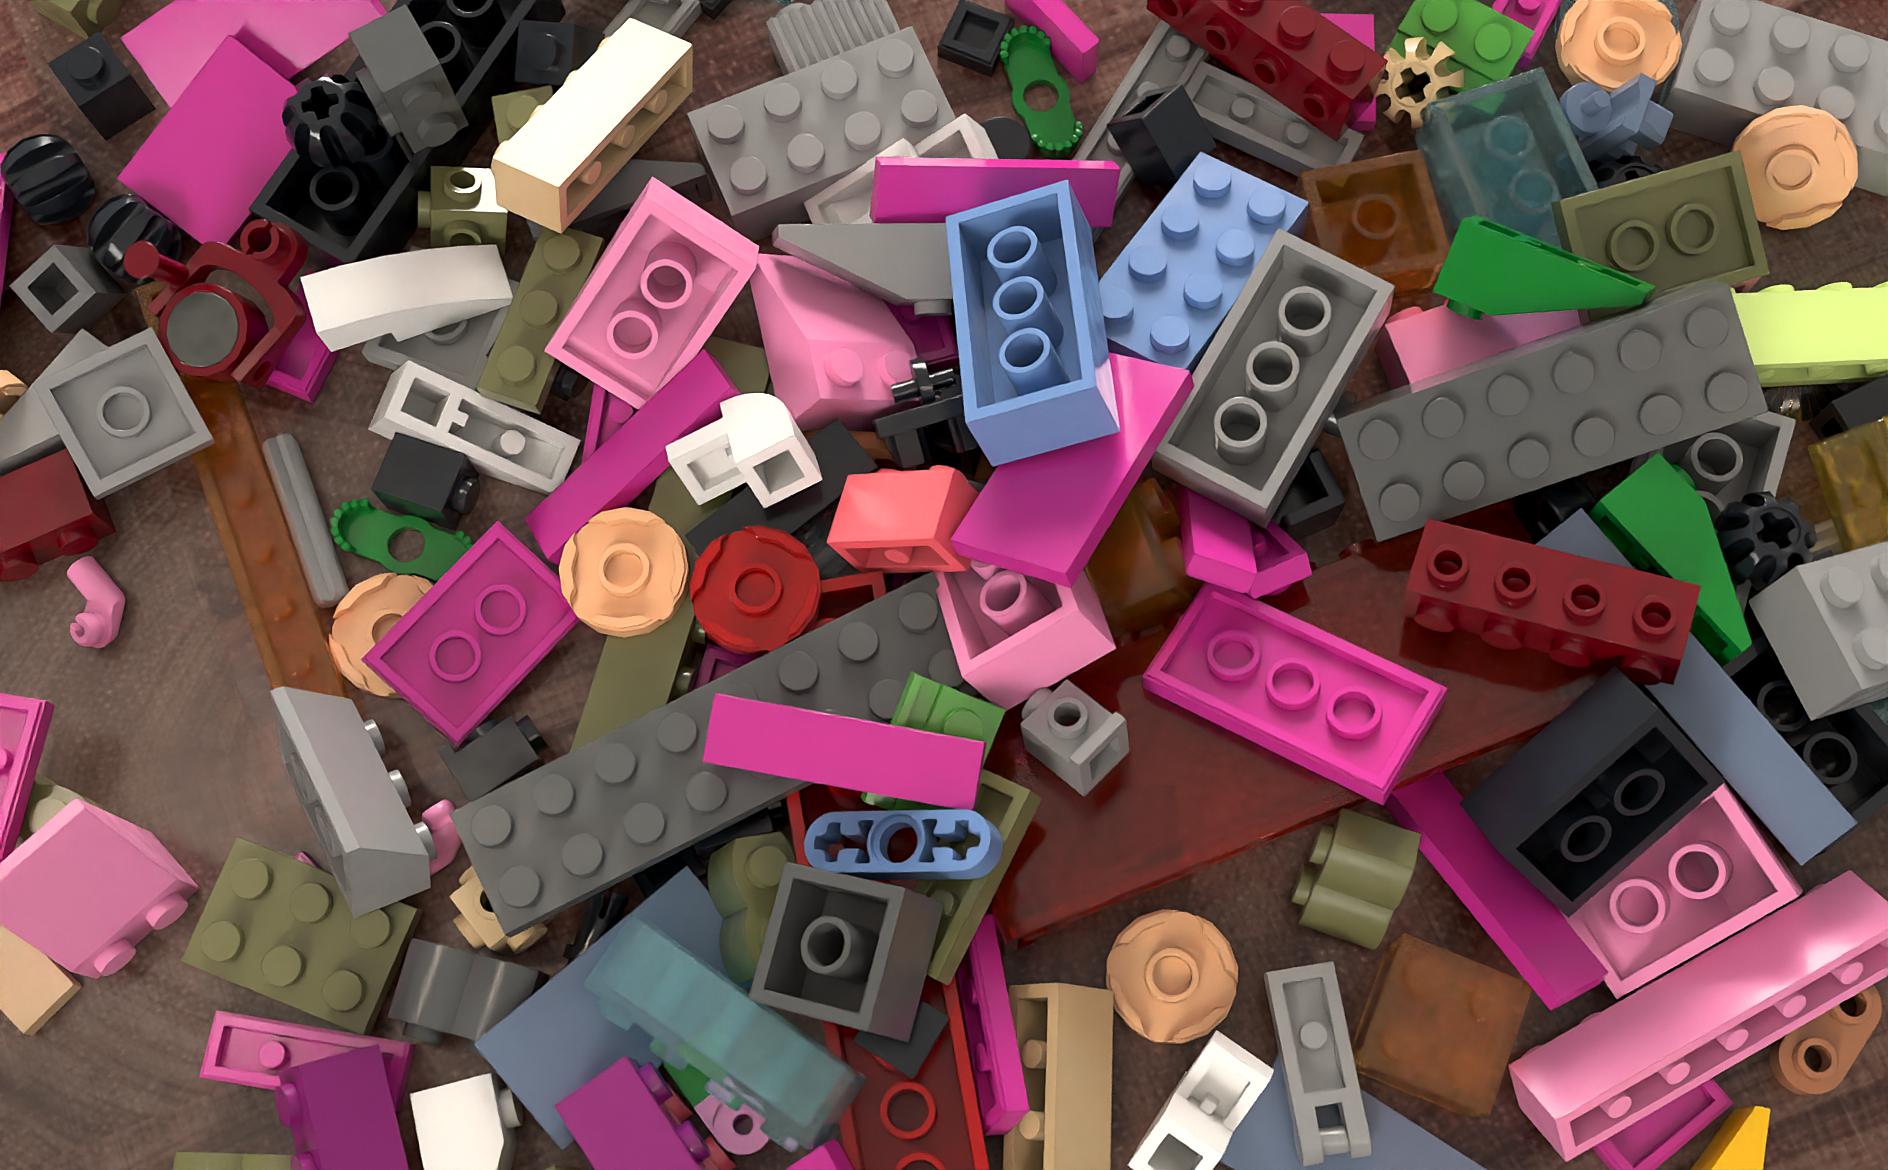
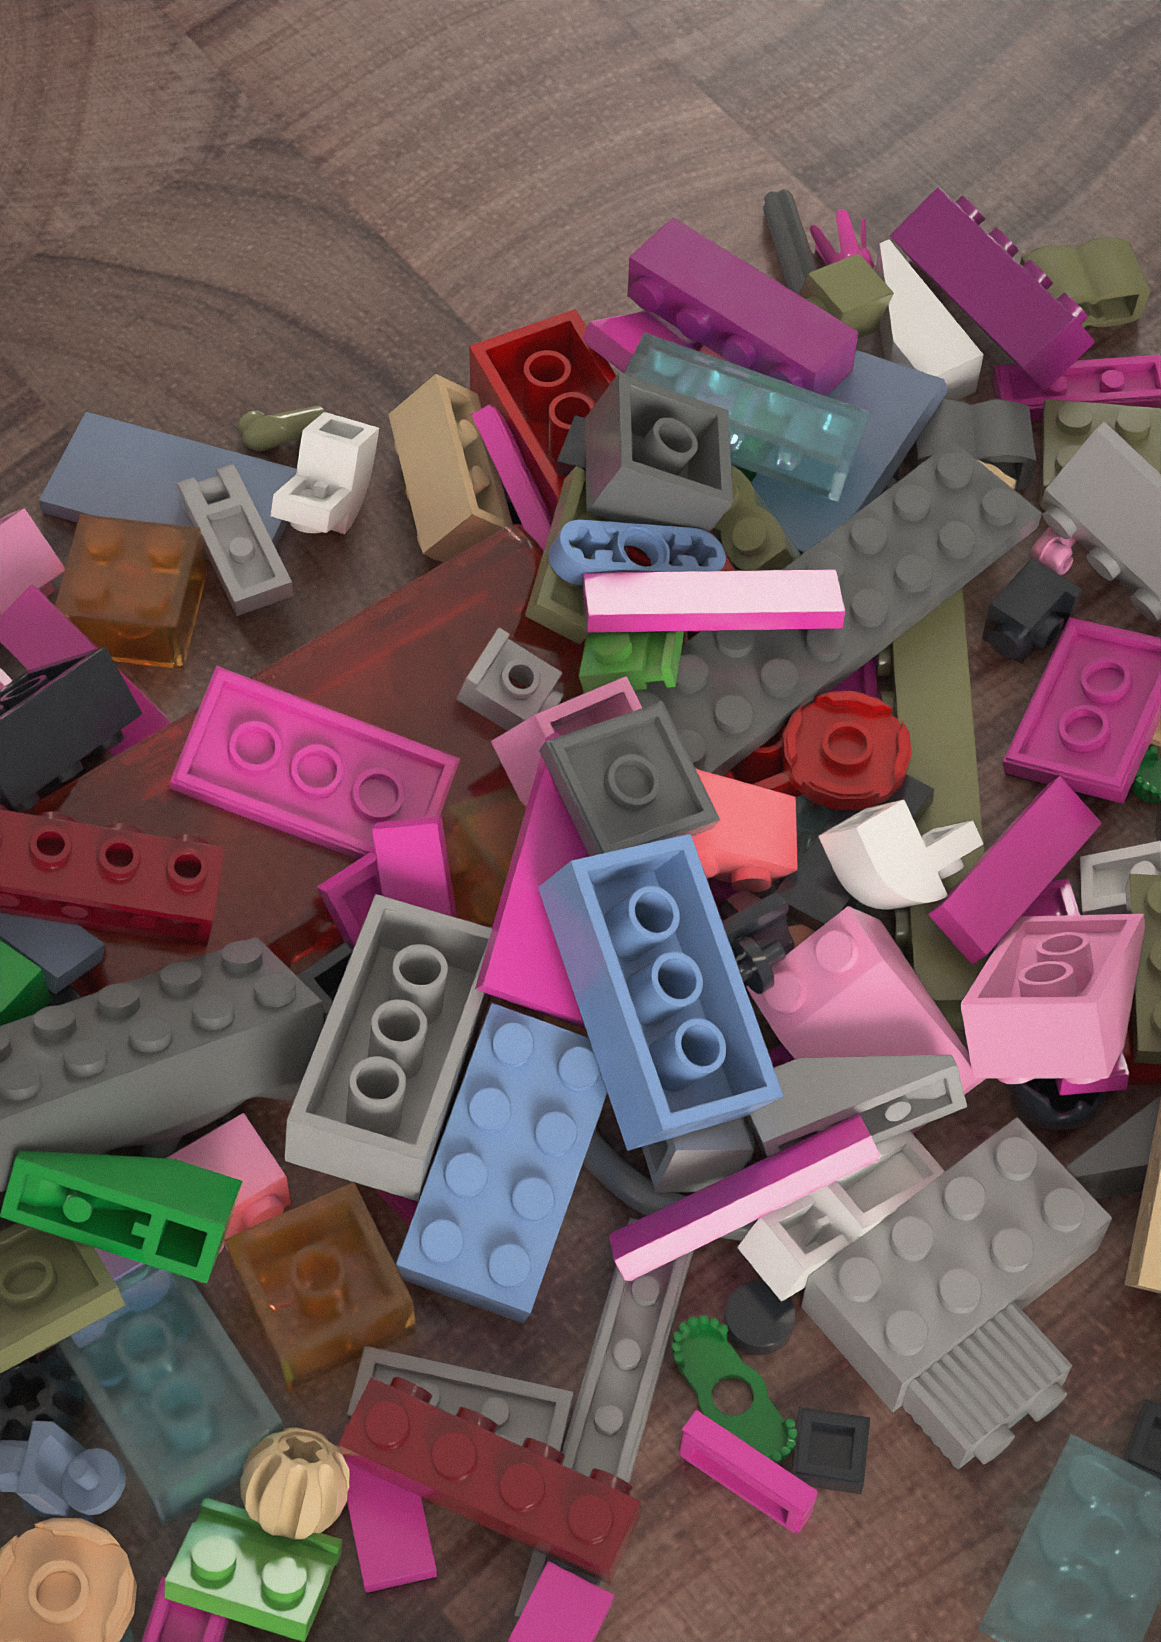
camera: 160 degrees right, 15 degrees down
(625, 572) = (978, 758): light nougat tile -> none
(1003, 512) = (629, 781): none -> dark grey tile
(1161, 135) = (580, 1339): black brick -> none
(1171, 976) = (360, 578): light nougat tile -> none
(1355, 878) = (204, 650): olive brick -> none

